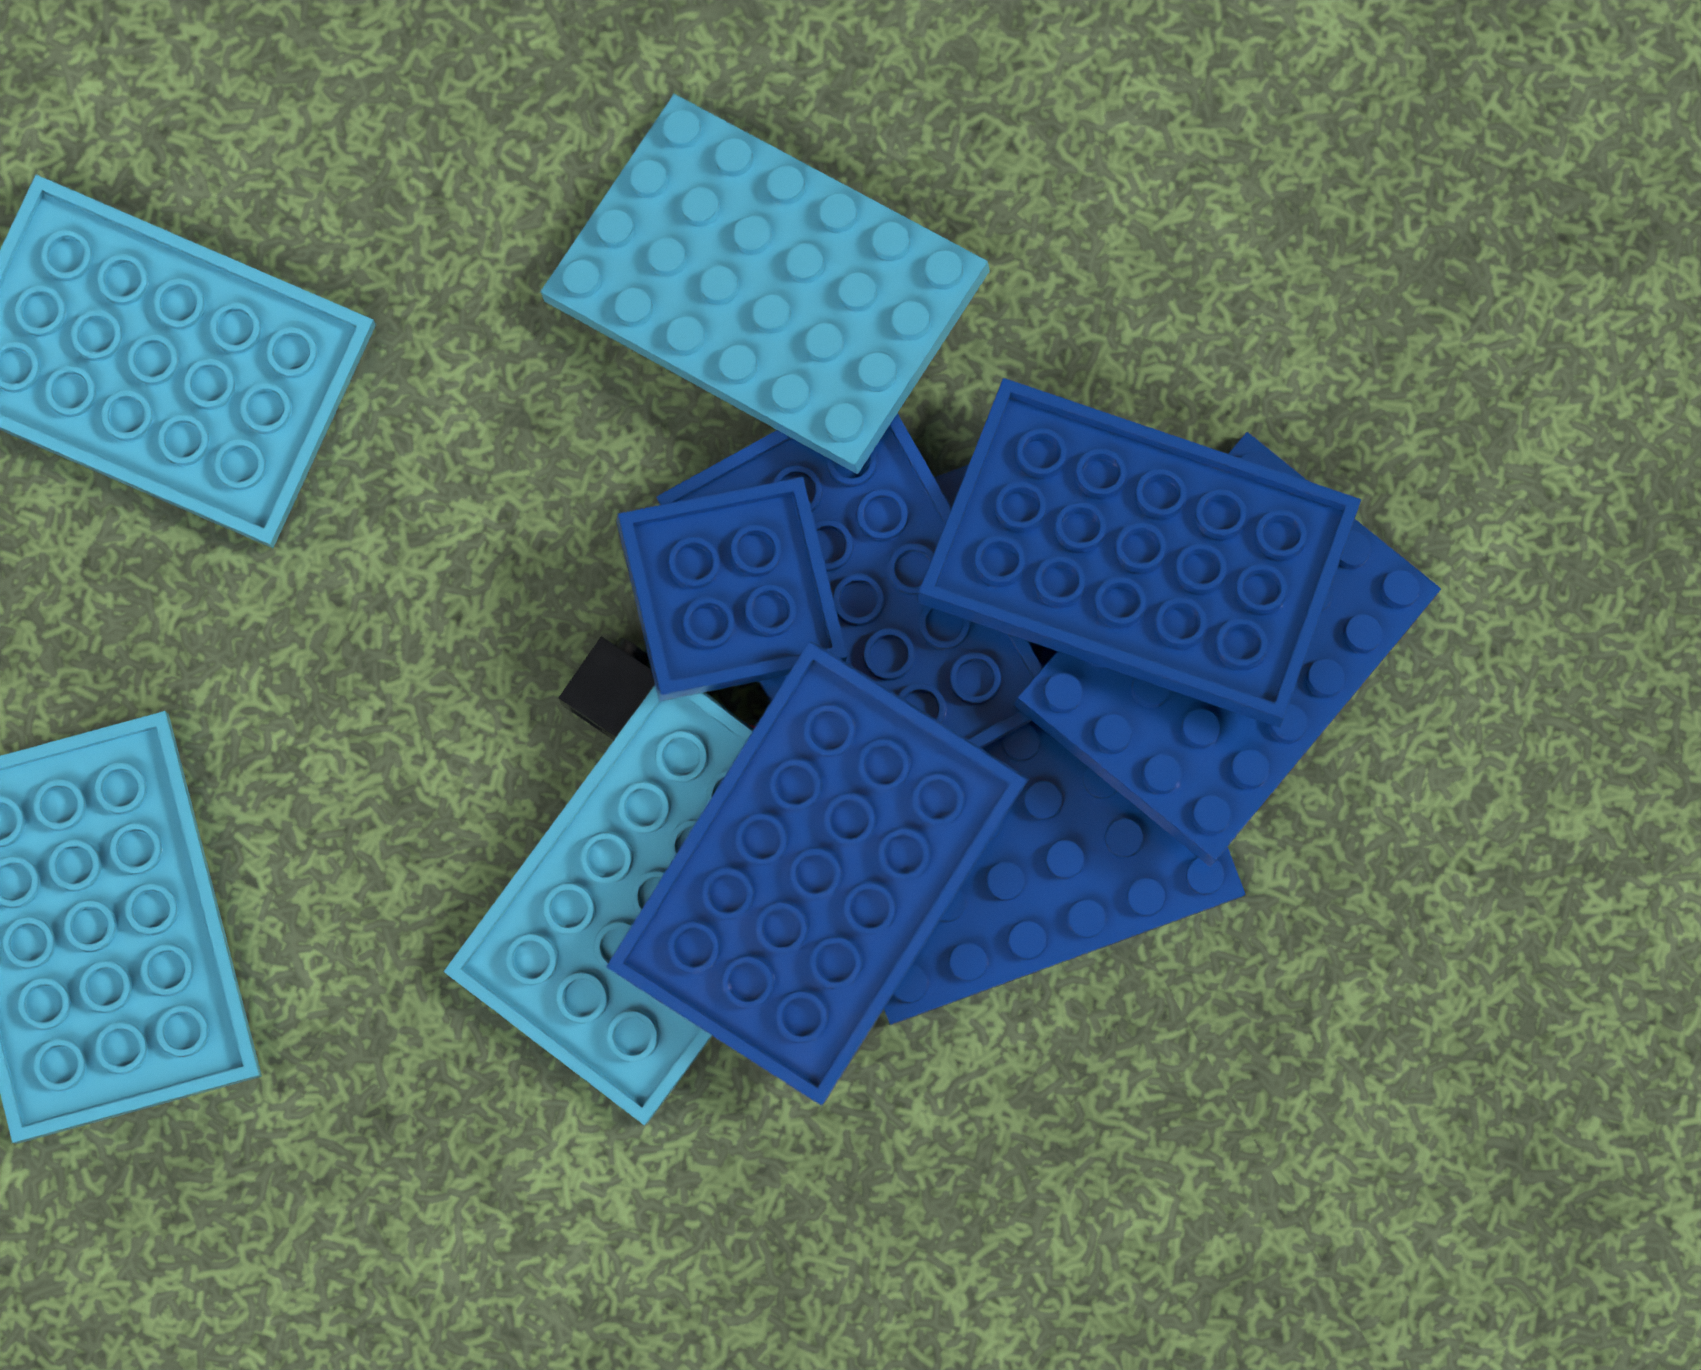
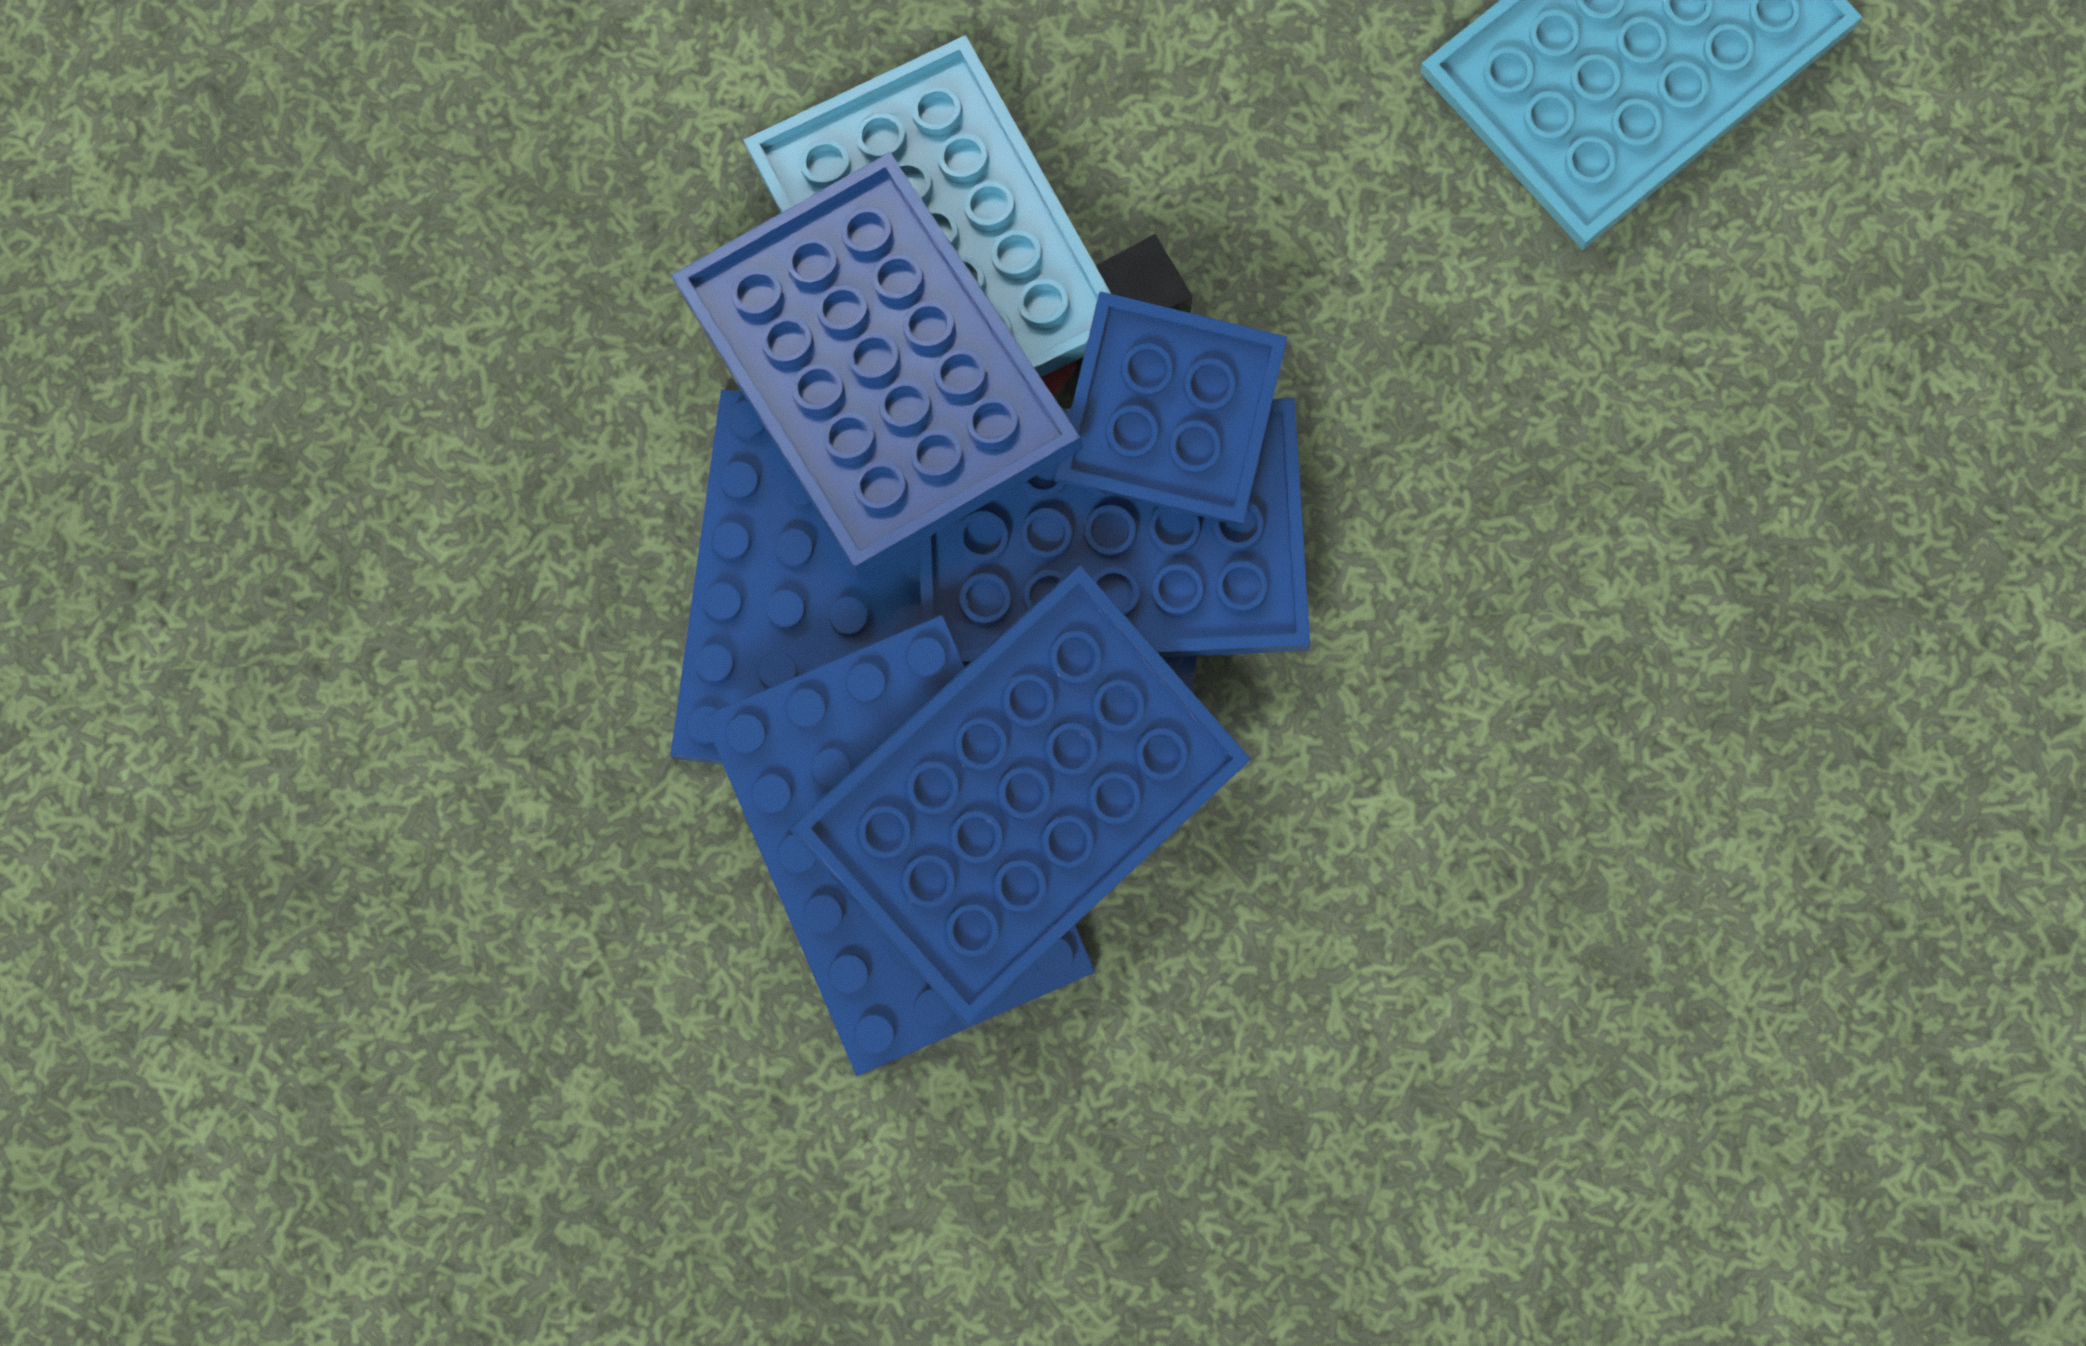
camera: 115 degrees right, 5 degrees down
(765, 282) = (1448, 594): medium azure plate -> none

